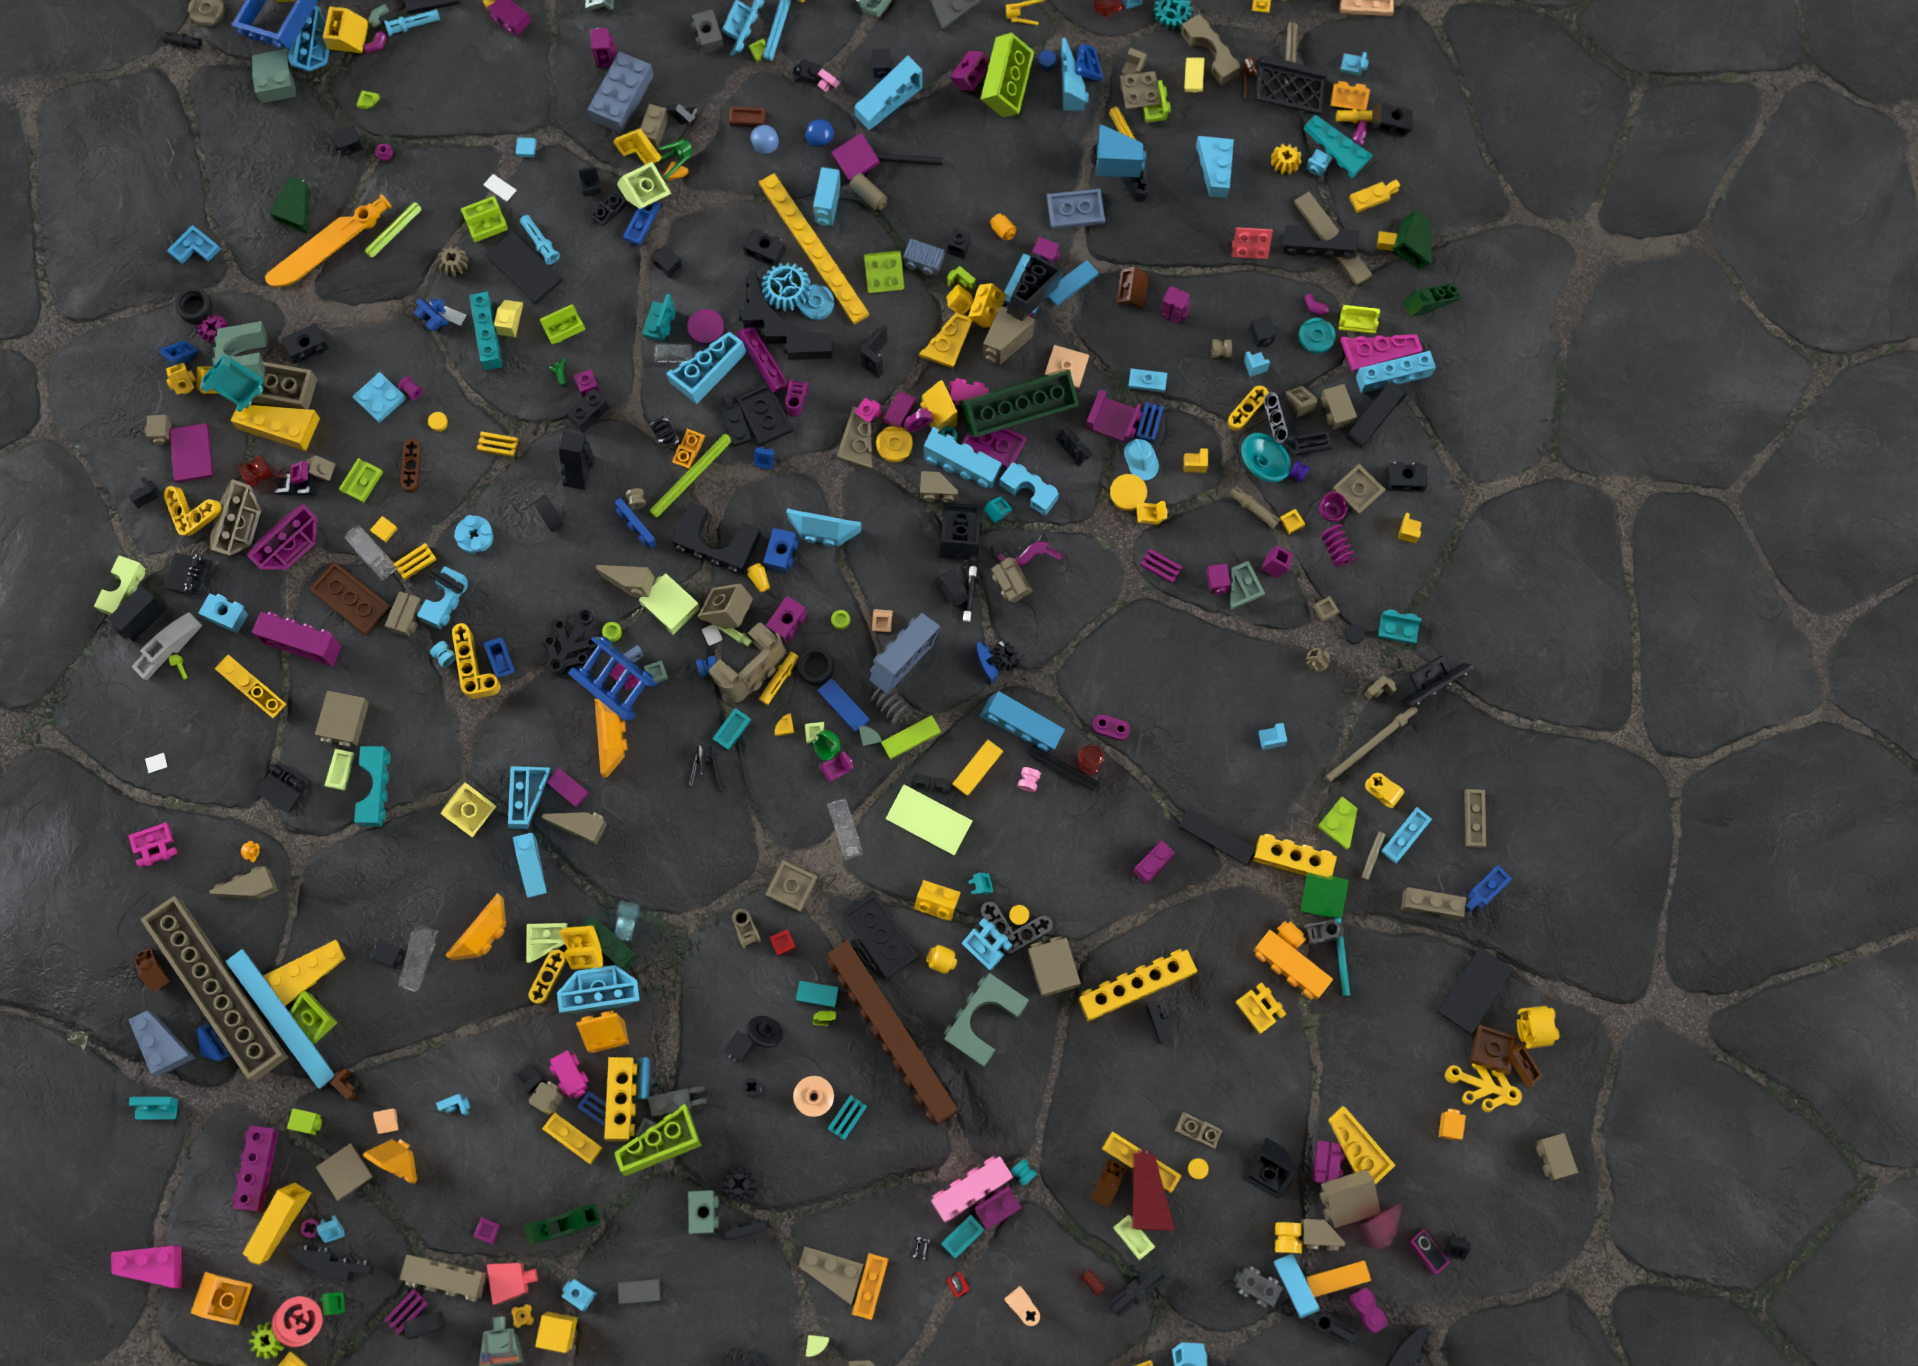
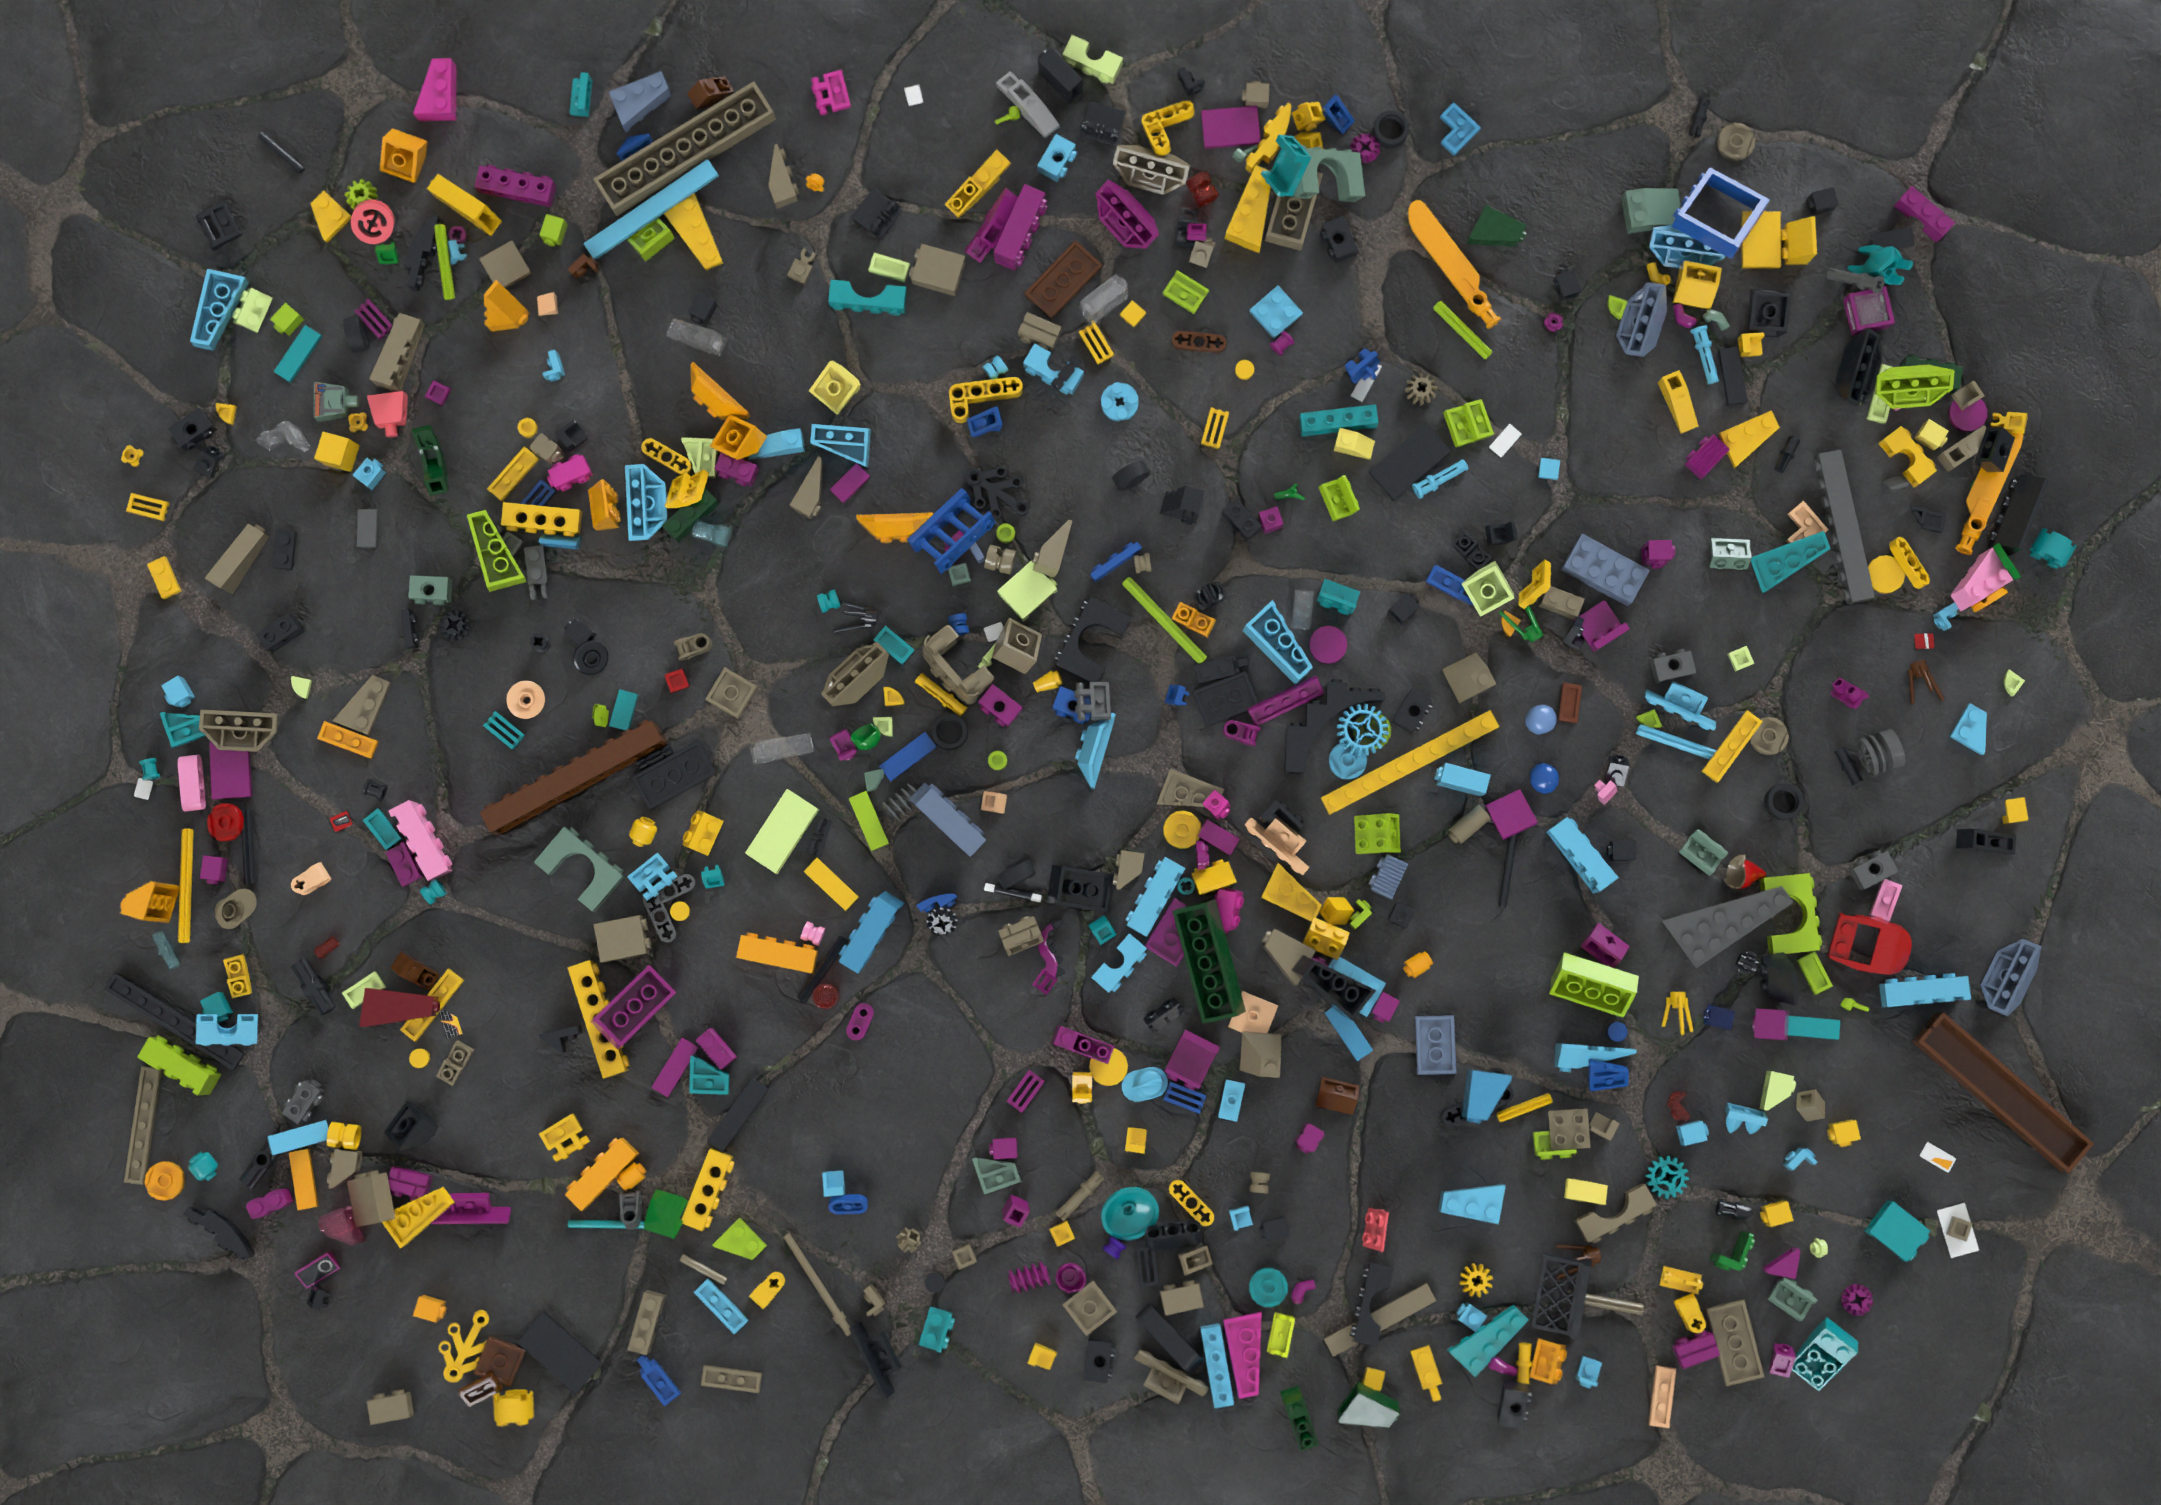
camera: 100 degrees right, 10 degrees up
(201, 409) = (1269, 147): none -> yellow slope
(219, 441) = (1239, 155): none -> sand green hand
(293, 664) = (992, 228): none -> magenta slope
(338, 68) = (1656, 277): none -> yellow arm
(341, 1236) = (444, 261): none -> lime axle
(343, 858) = (801, 269): none -> dark tan plate
(379, 74) = (1643, 320): none -> sand blue wedge
(455, 40) = (1679, 401): none -> yellow slope
(521, 1128) = (527, 427): none -> yellow tile
(525, 898) = (738, 438): none -> light orange slope
(558, 901) = (738, 470): none -> magenta brick
(639, 631) = (1000, 559): none -> dark tan wheel
(675, 90) = (1601, 626): none -> magenta bracket
(690, 796) = (828, 601): none -> teal wheel
(729, 201) = (1469, 677): none -> dark tan slope
(763, 760) = (856, 675): none -> dark tan wedge
(775, 521) = (1099, 701): none -> dark grey plate
(897, 351) = (1282, 840): none -> light nougat bracket
(1053, 812) = (777, 954): none -> light orange brick
(1102, 354) = (1261, 1054): none -> dark tan slope
(1110, 516) = (1082, 1044): none -> magenta slope
(1122, 945) = (633, 1007): none -> magenta brick
(1159, 1141) = (450, 1024): none -> sticker
(1177, 904) = (675, 1067): none -> magenta tile
(1184, 869) = (707, 1078): none -> teal wing
(1291, 720) = (848, 1204): none -> blue plate
(1345, 1089) = (473, 1209): none -> magenta bracket
(1414, 415) = (1167, 1380): none -> dark tan bracket

